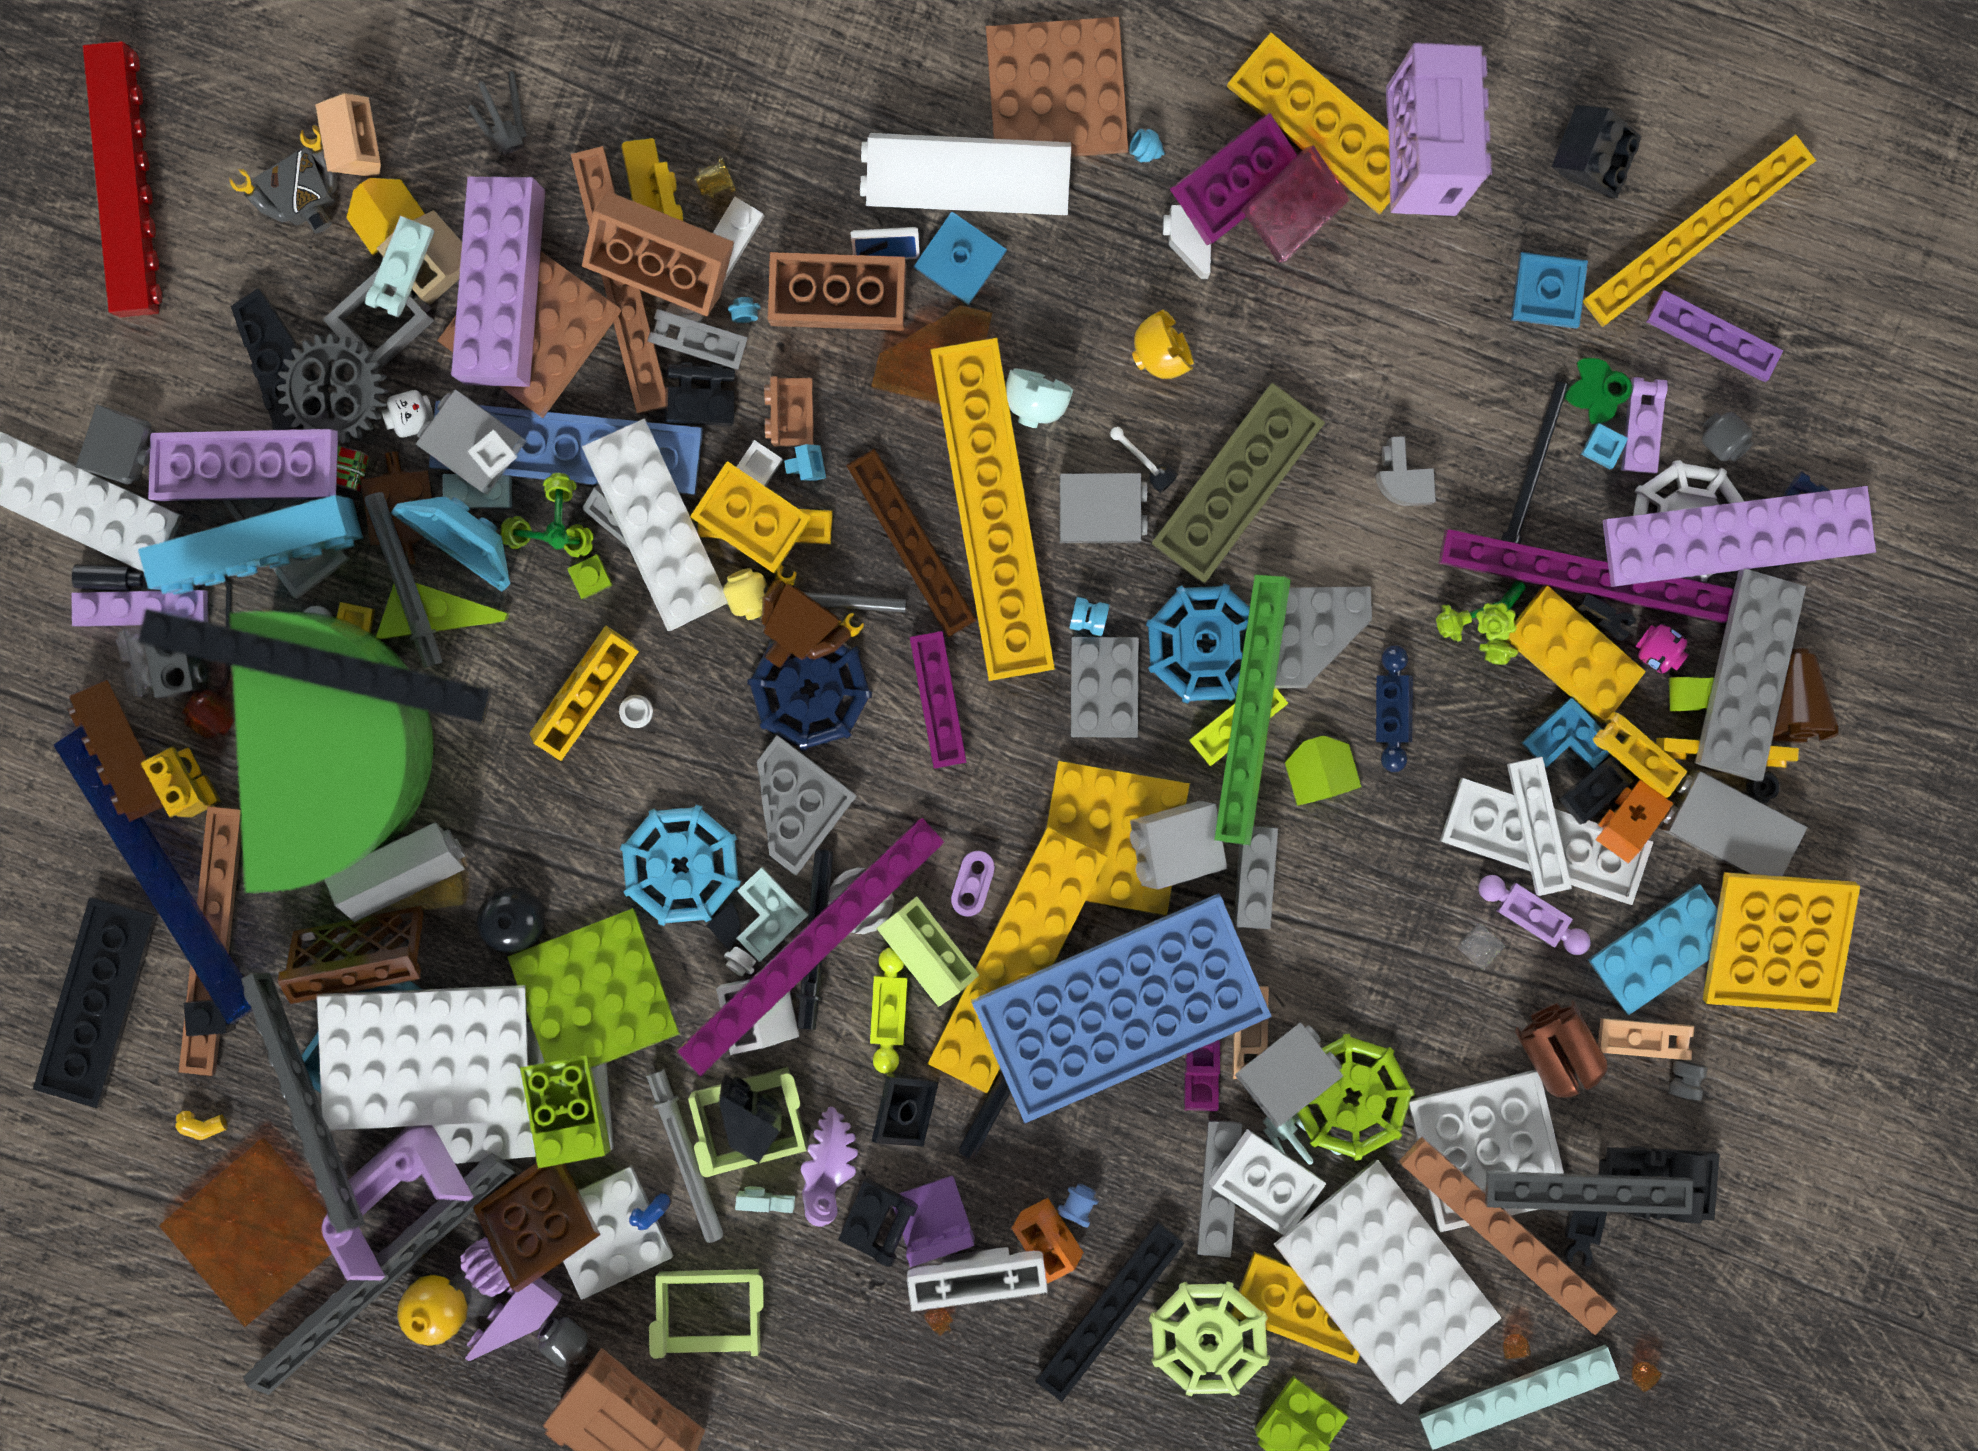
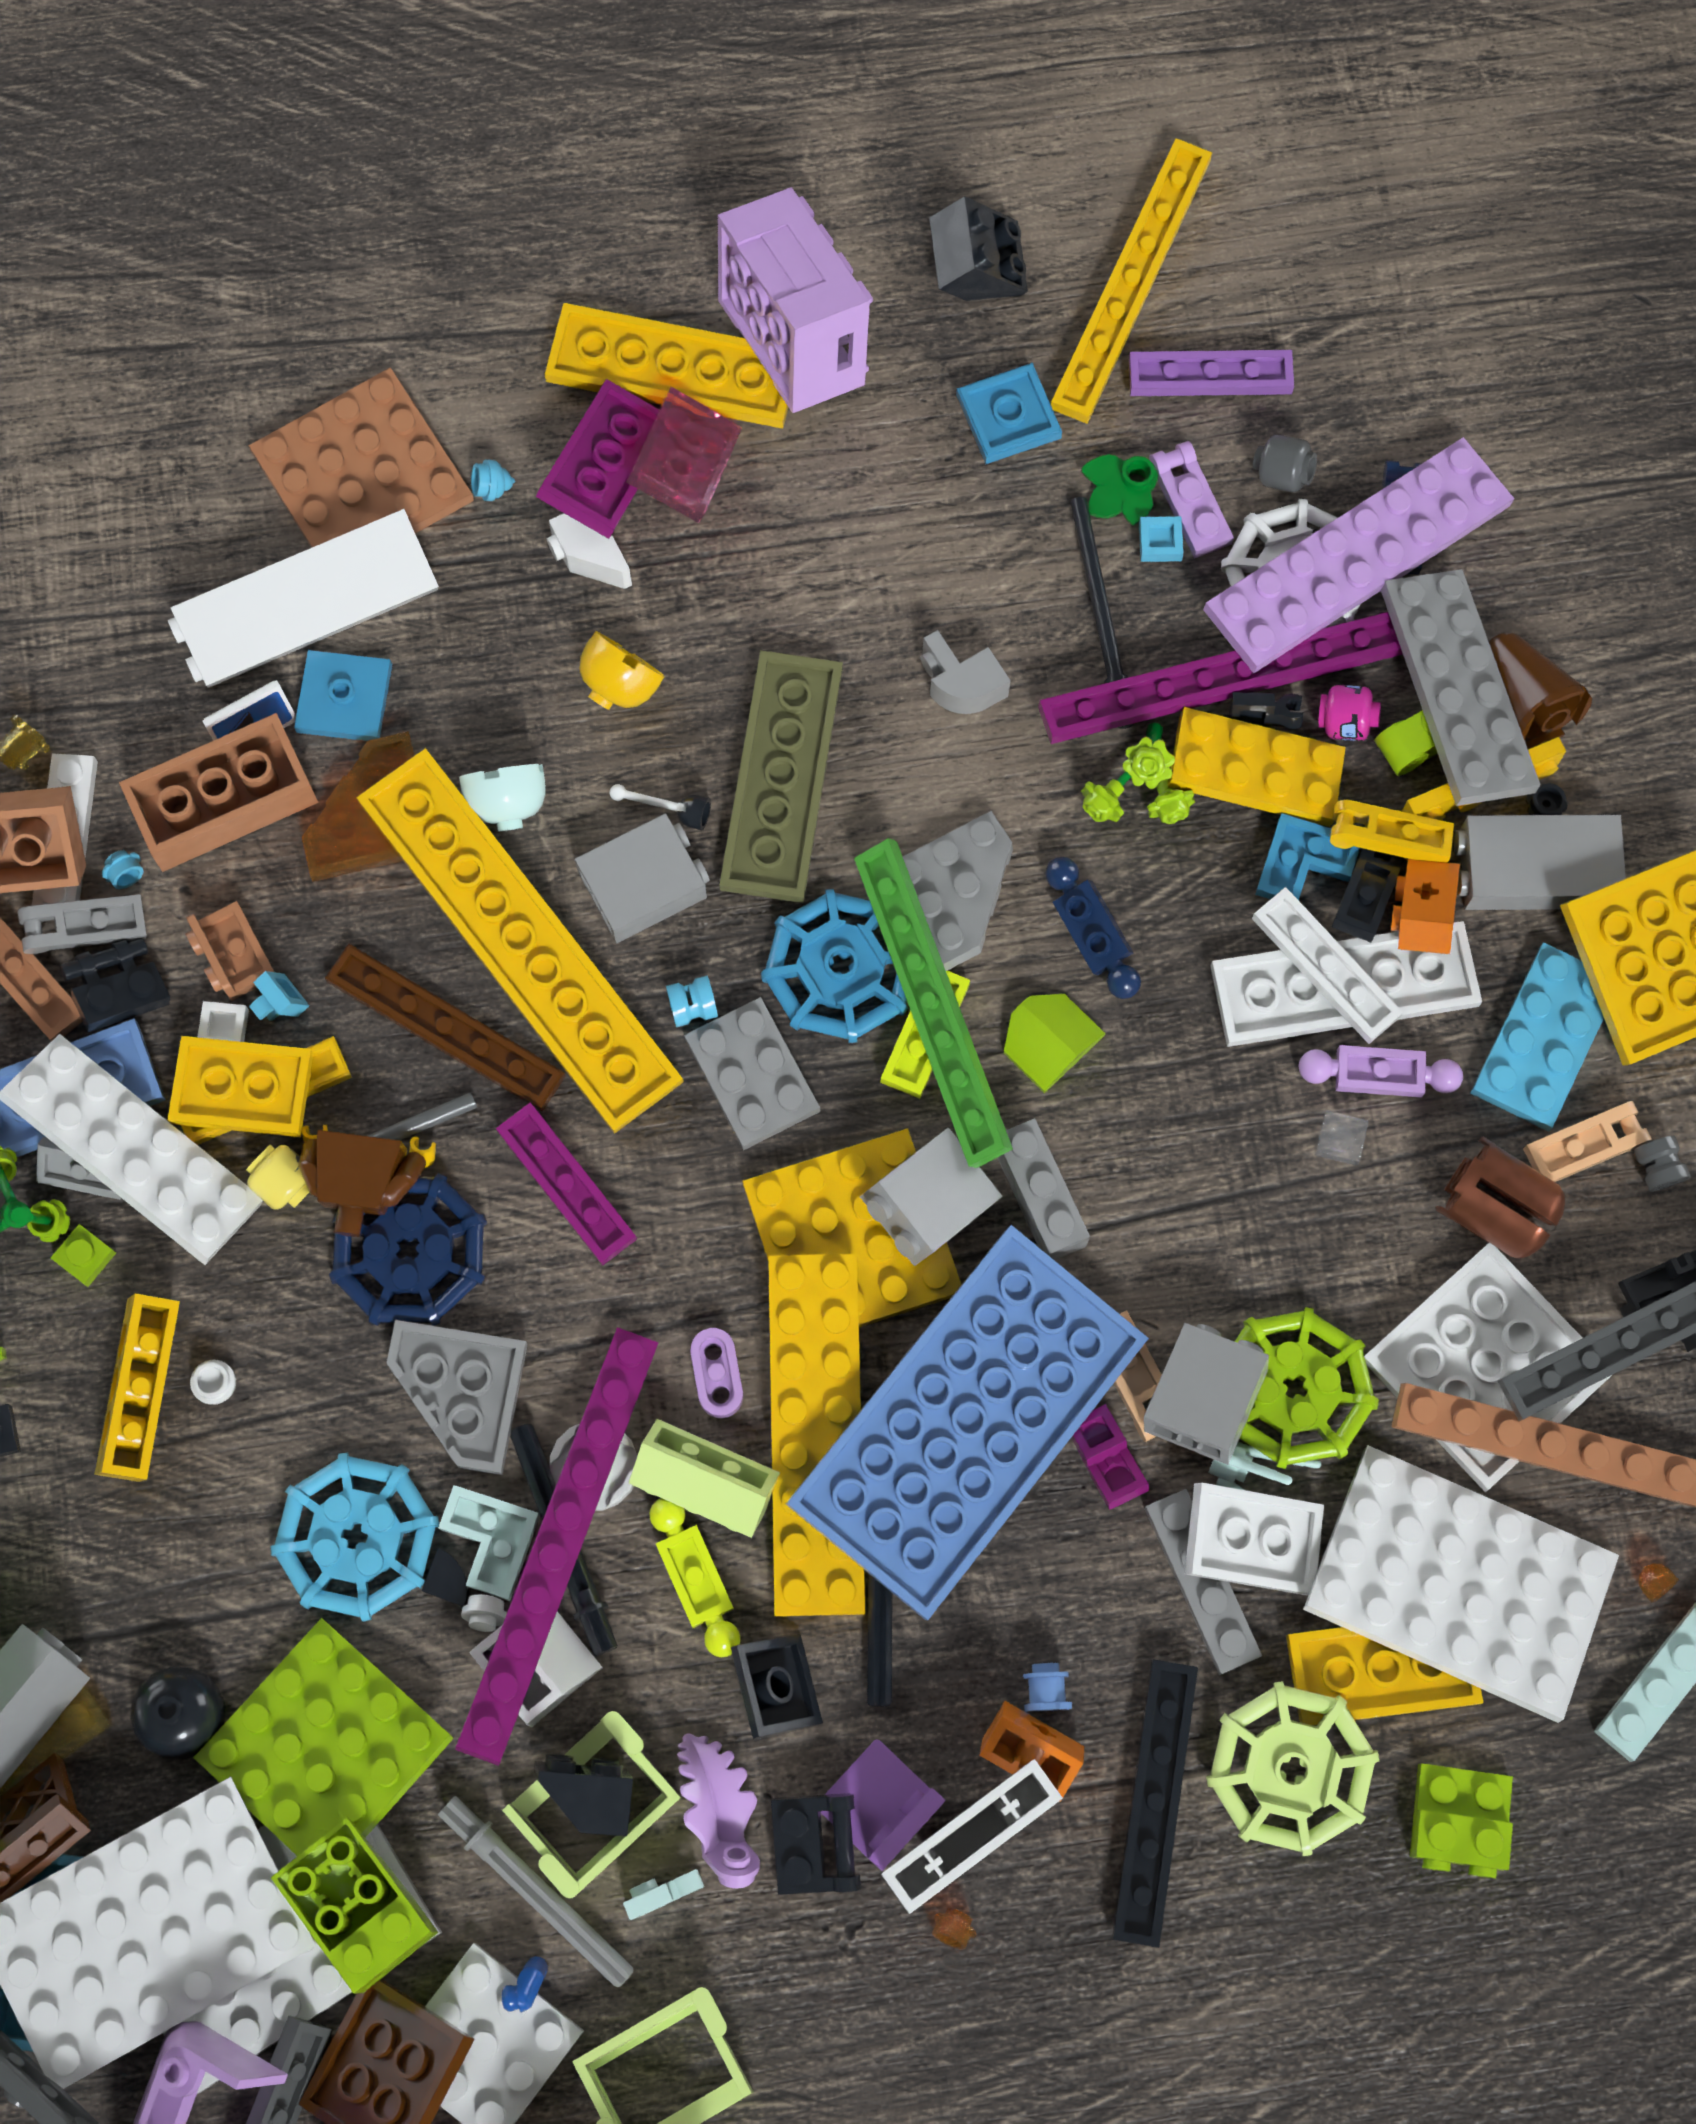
camera: 30 degrees left, 15 degrees down
(1584, 1228) = (1651, 1395): black plate -> none

